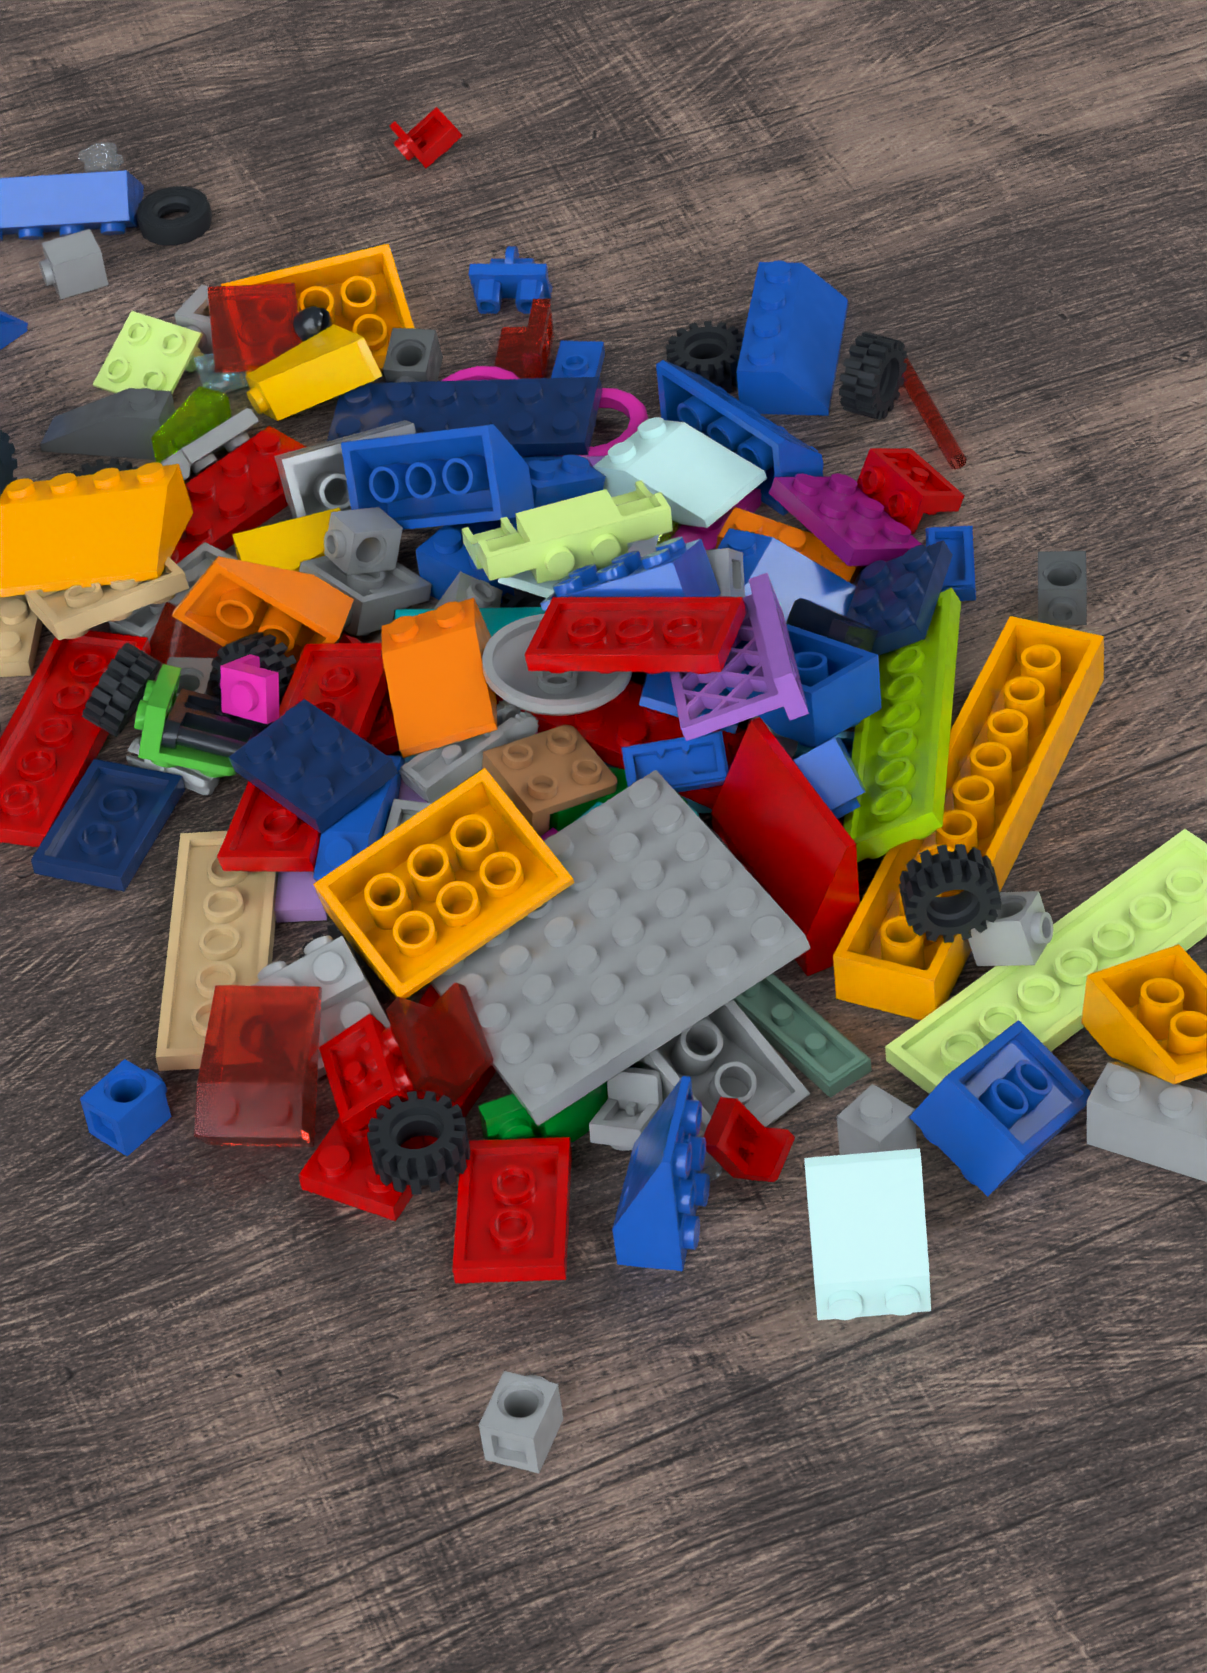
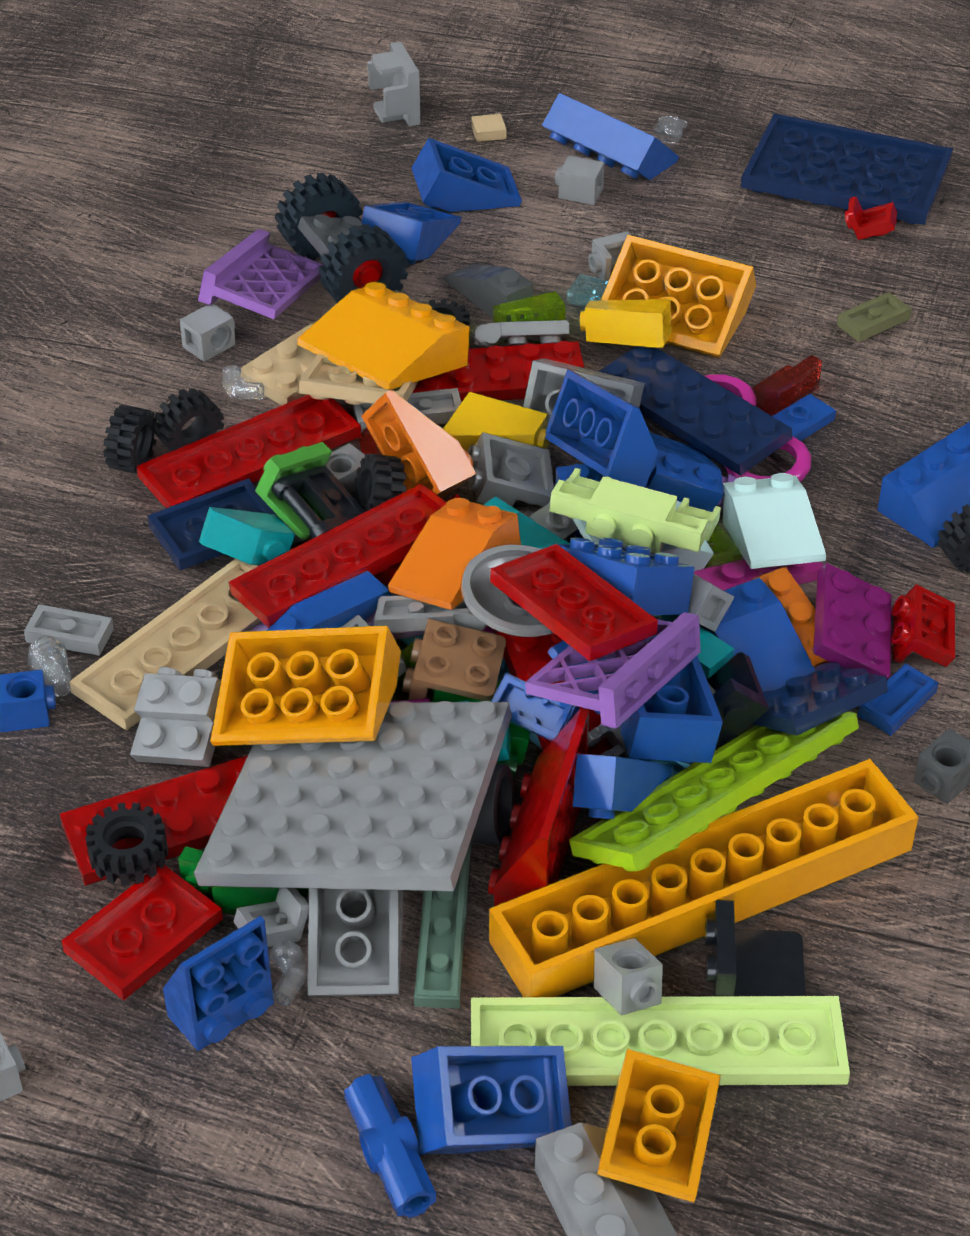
camera: 35 degrees right, 0 degrees up
(84, 1016) = (74, 629): none -> light grey plate
(102, 1051) = (52, 658): none -> clear cone
(121, 689) = (291, 436): black tyre -> none
(149, 355) = (556, 260): yellowish green hinge -> none
(176, 230) = (673, 195): black tyre -> none
(178, 806) = (246, 535): none -> teal slope
(249, 690) = (352, 488): dark pink bracket -> none
(251, 324) = (622, 270): clear red tile -> none
(260, 1067) = (98, 729): clear red slope -> none
(311, 322) = (655, 288): black hinge -> none
(313, 765) = (330, 561): dark blue plate -> none
(337, 100) = (837, 163): none -> dark blue plate
(362, 540) = (530, 441): light grey brick -> none
(365, 1071) = (154, 777): red bracket -> none
(413, 356) = (701, 349): dark grey brick -> none
(441, 1042) = (202, 788): clear red panel -> none
(509, 279) = (820, 333): blue hips -> none
(539, 229) = (874, 316): none -> olive plate
(708, 352) = (876, 450): black tyre -> none
(736, 426) = (844, 516): blue slope -> none
(744, 1144) = (311, 994): red bracket -> none
(868, 1234) = (288, 1121): light aqua slope -> none
(876, 1124) = (392, 1048): light grey brick -> none
(945, 873) = (585, 920): black tyre -> none
(963, 1209) = (390, 1146): none -> blue piece
(1078, 853) = (752, 959): none -> black bracket

